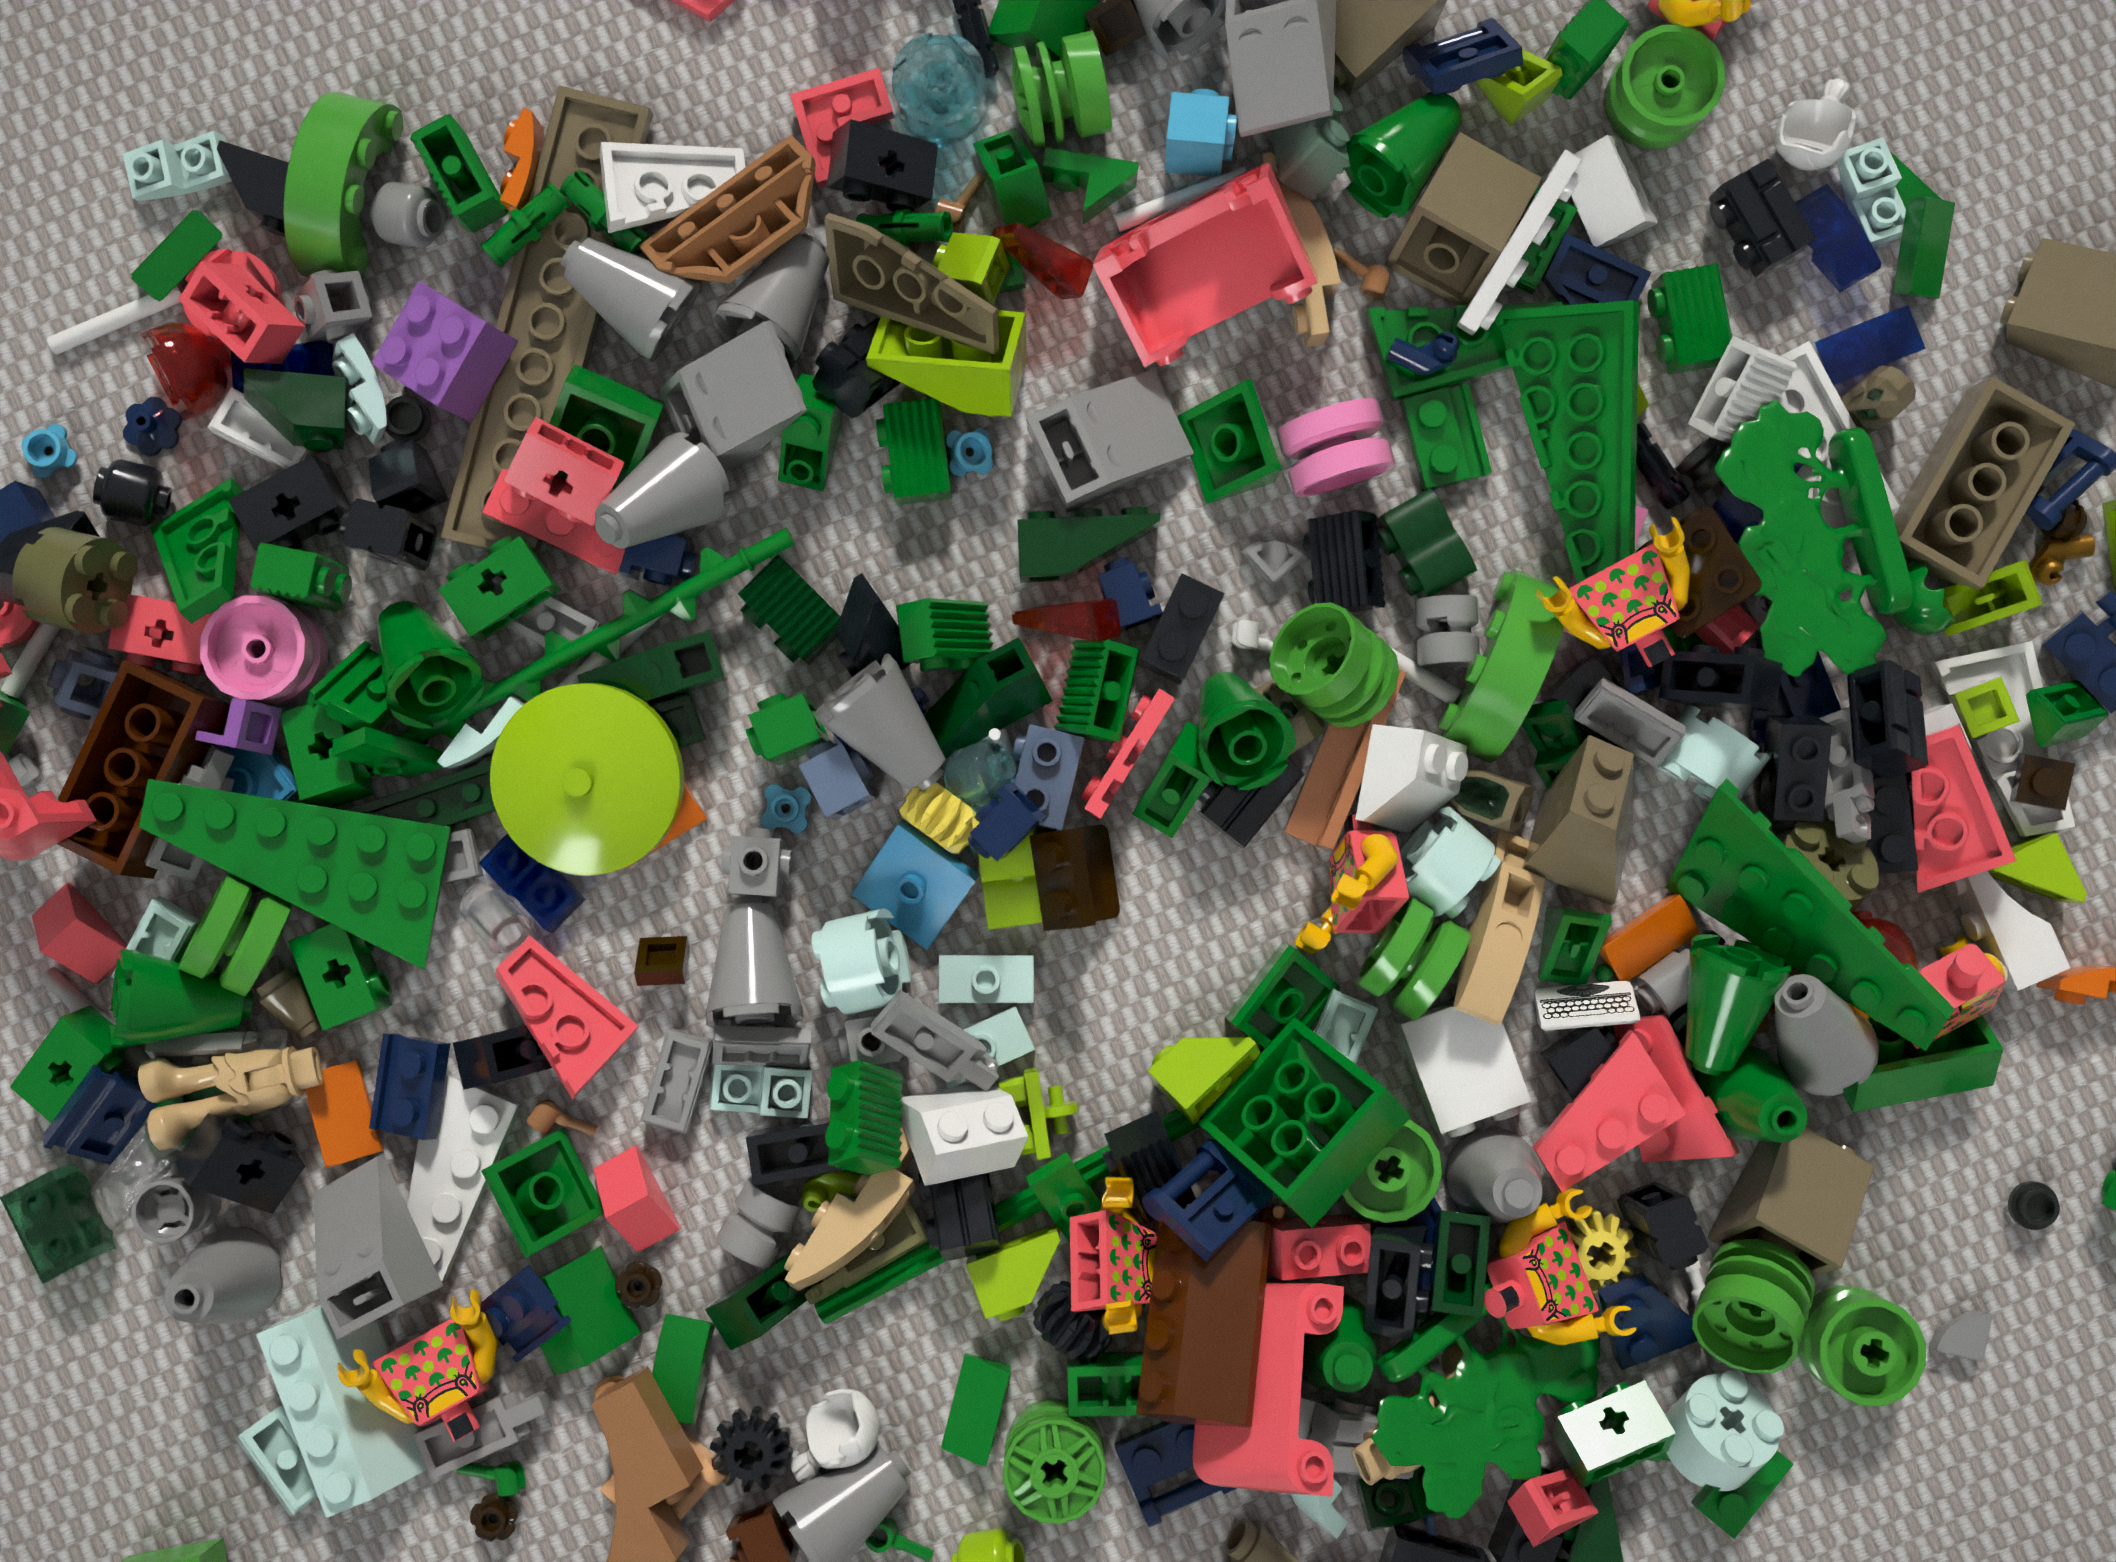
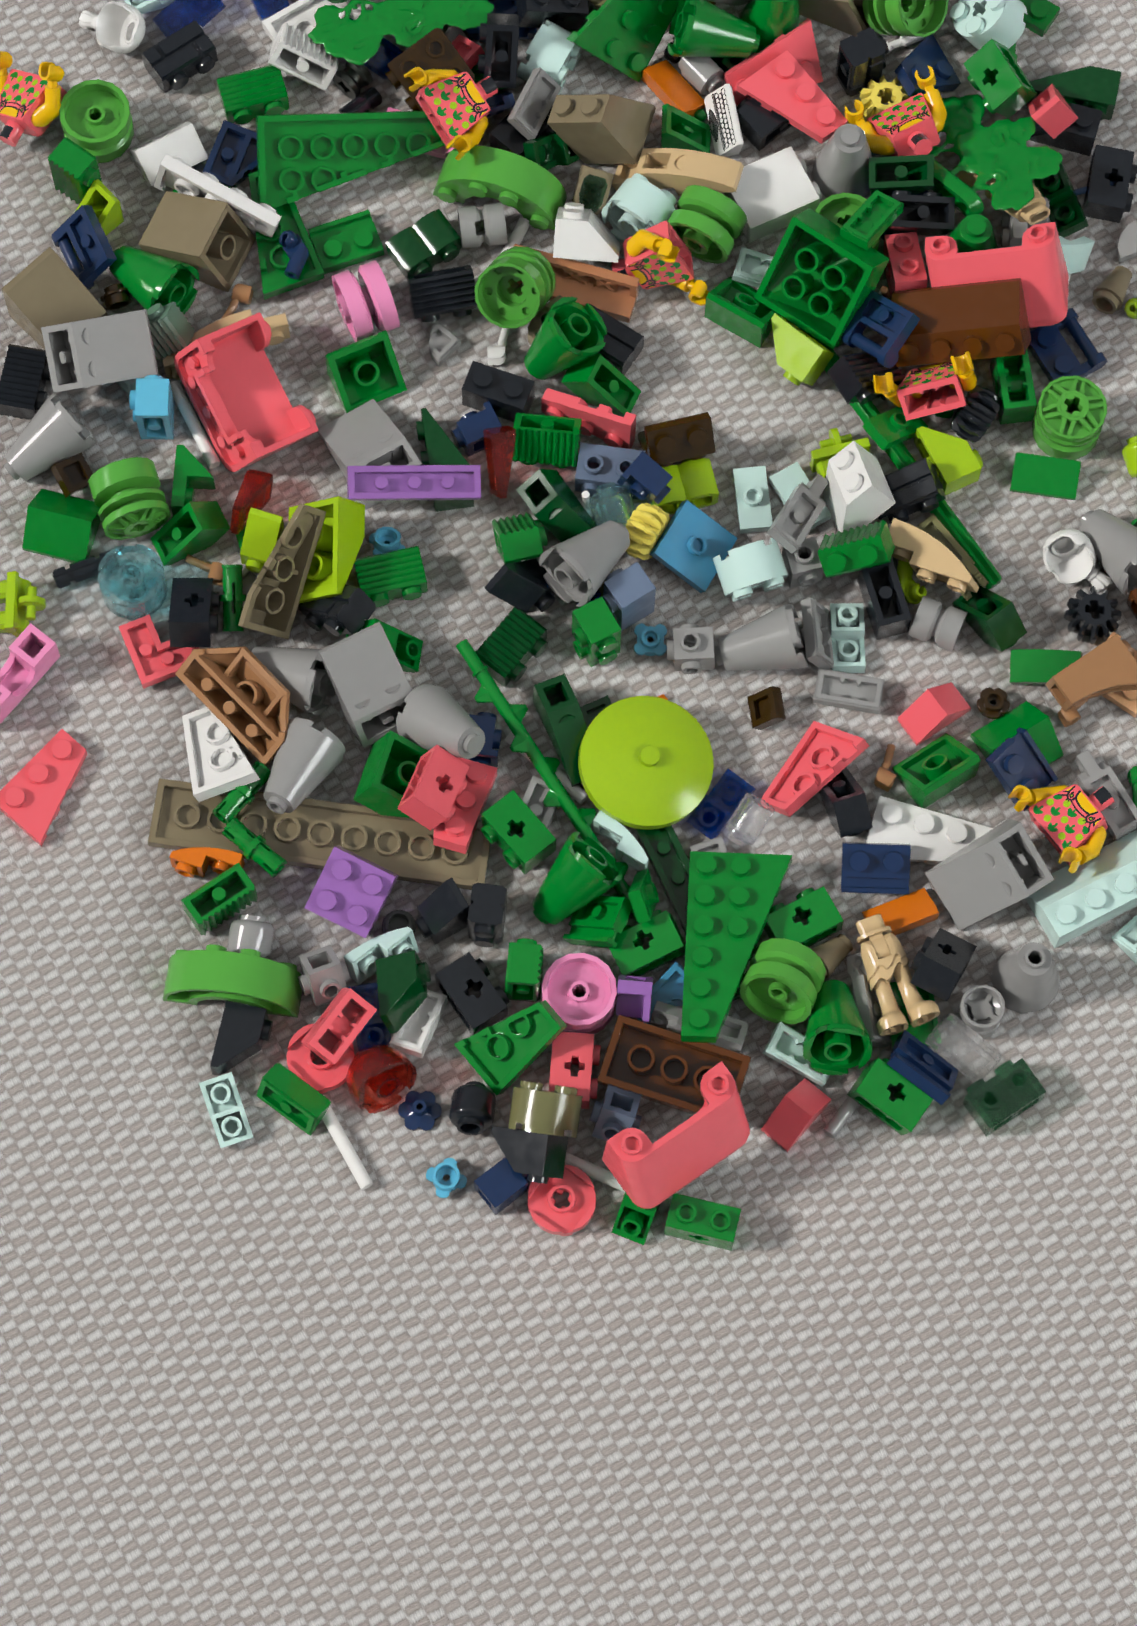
camera: 95 degrees left, 15 degrees down
(1032, 485) = (414, 482): none -> medium lavender plate
(1375, 1208) = (871, 220): none -> green plate
(1385, 98) = (116, 297): none -> dark brown plate

